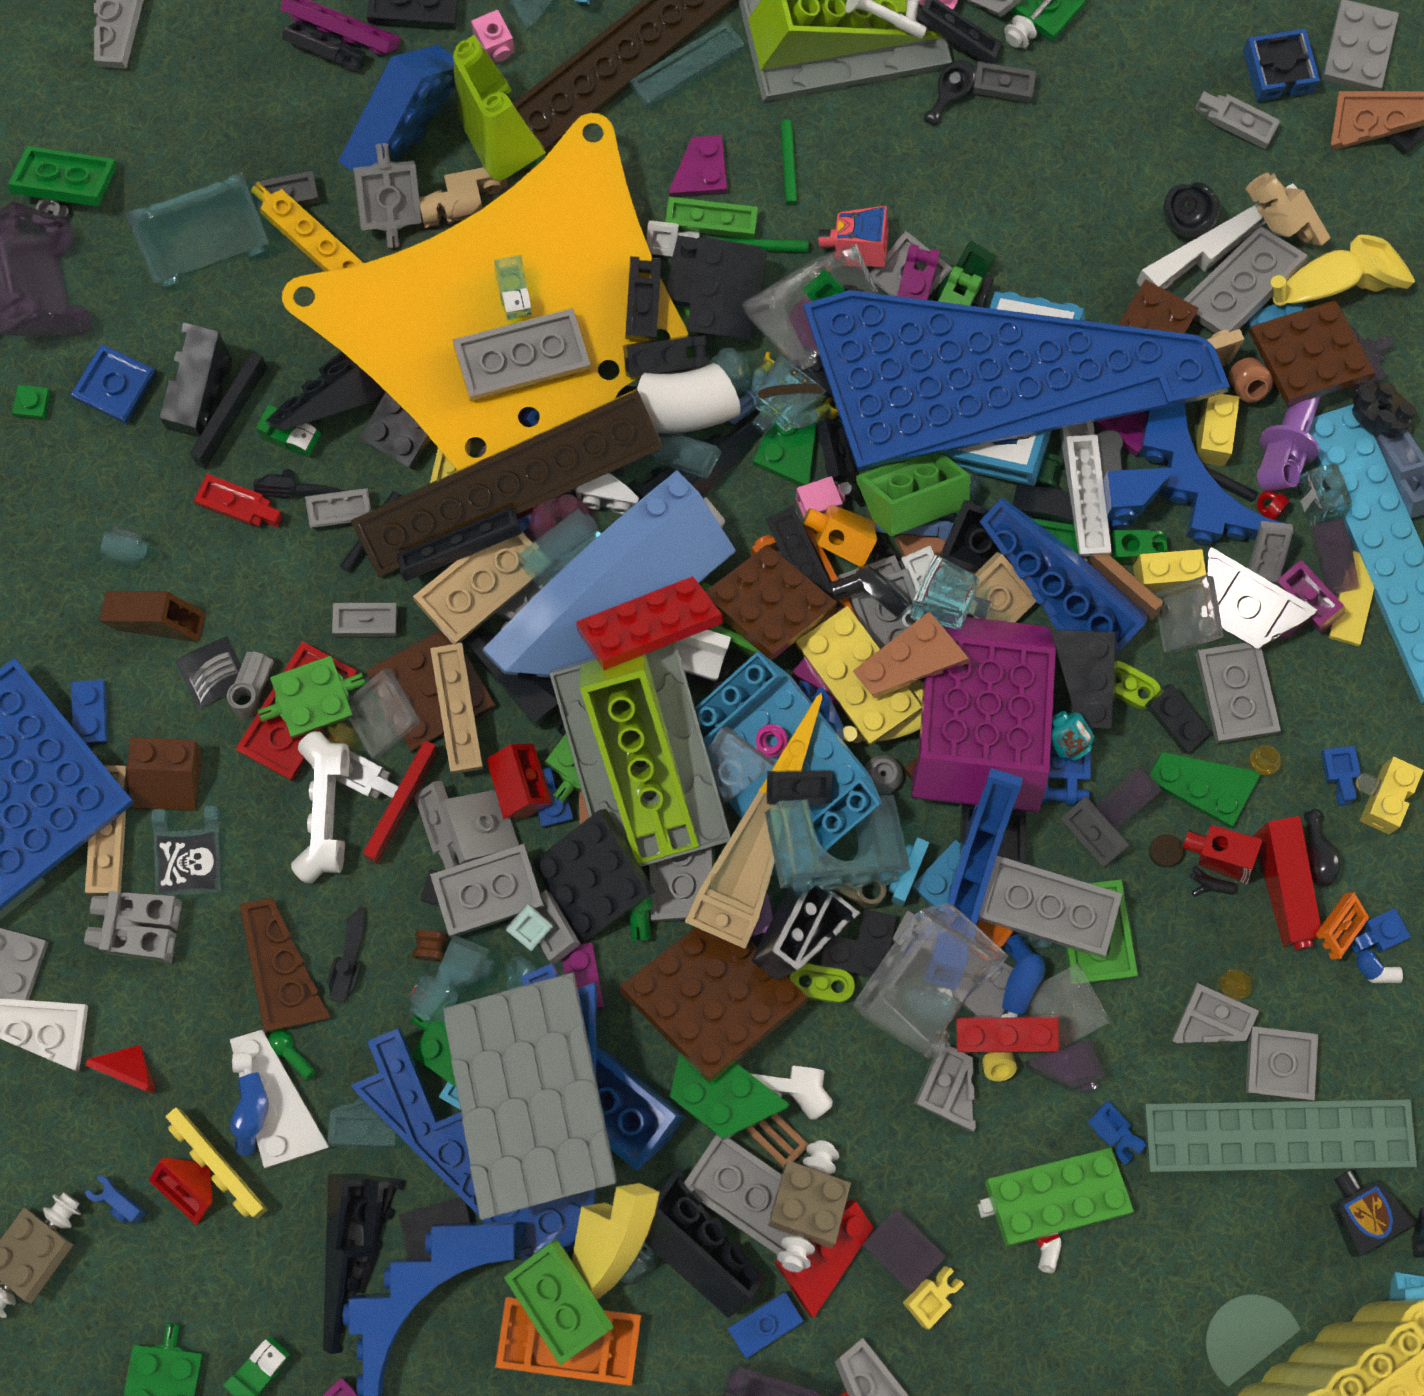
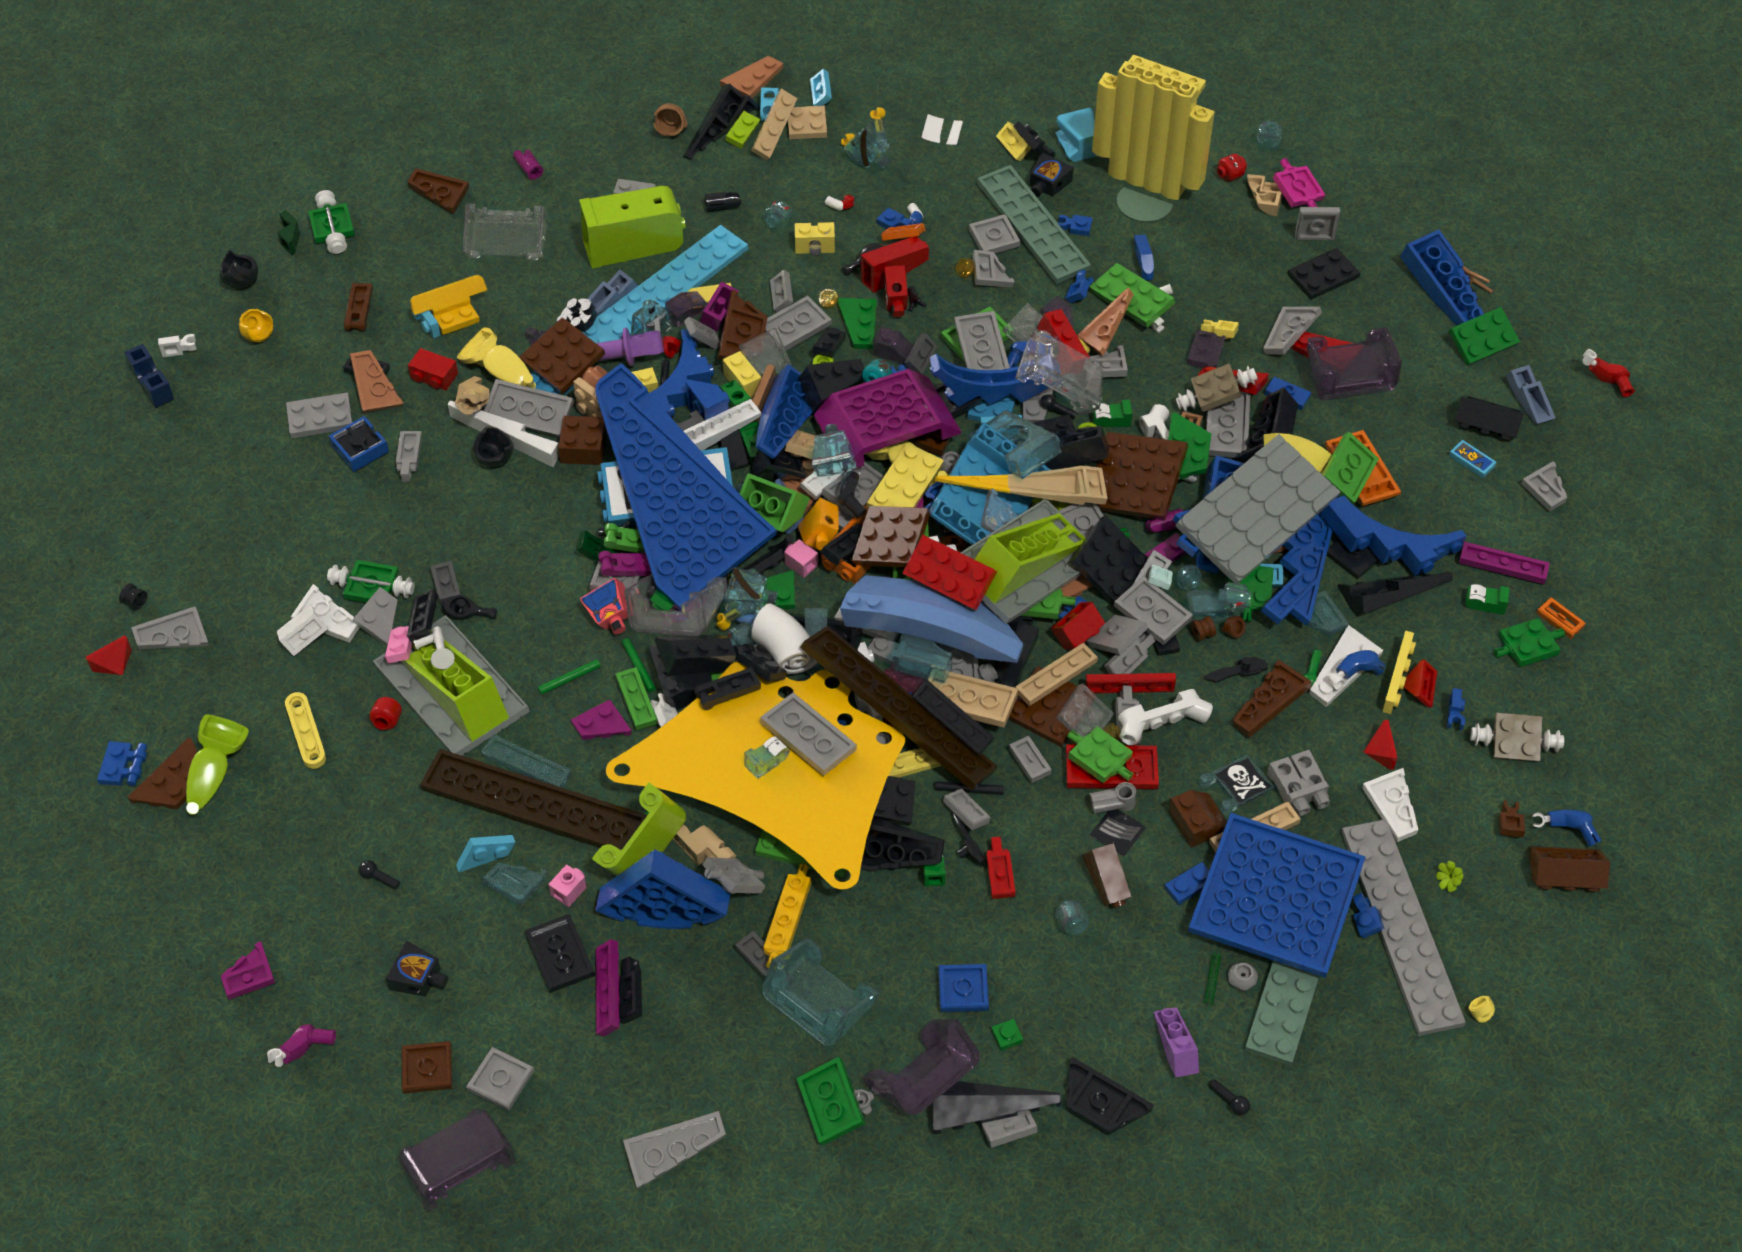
camera: 115 degrees left, 20 degrees down
(197, 381) = (934, 931): black wedge -> none
(228, 410) = (939, 905): black tile -> none
(404, 986) = (1234, 626): none -> reddish brown tile
(624, 1014) = (1158, 525): none -> magenta hinge
(763, 744) = (977, 494): dark pink plate -> none
(800, 785) = (997, 468): black plate -> none
(850, 1041) = (1113, 415): none -> green leg
(912, 655) = (884, 449): nougat wing -> none
(1014, 1113) = (1102, 329): none -> nougat wing
(1133, 1267) = (1144, 256): none -> blue piece
(1165, 850) = (909, 324): dark brown tile -> none
(1247, 1208) = (1078, 224): none -> blue plate
(1308, 701) = (781, 291): none -> light grey plate
(1341, 767) = (813, 265): blue plate -> none
(1372, 198) = (433, 369): none -> red brick

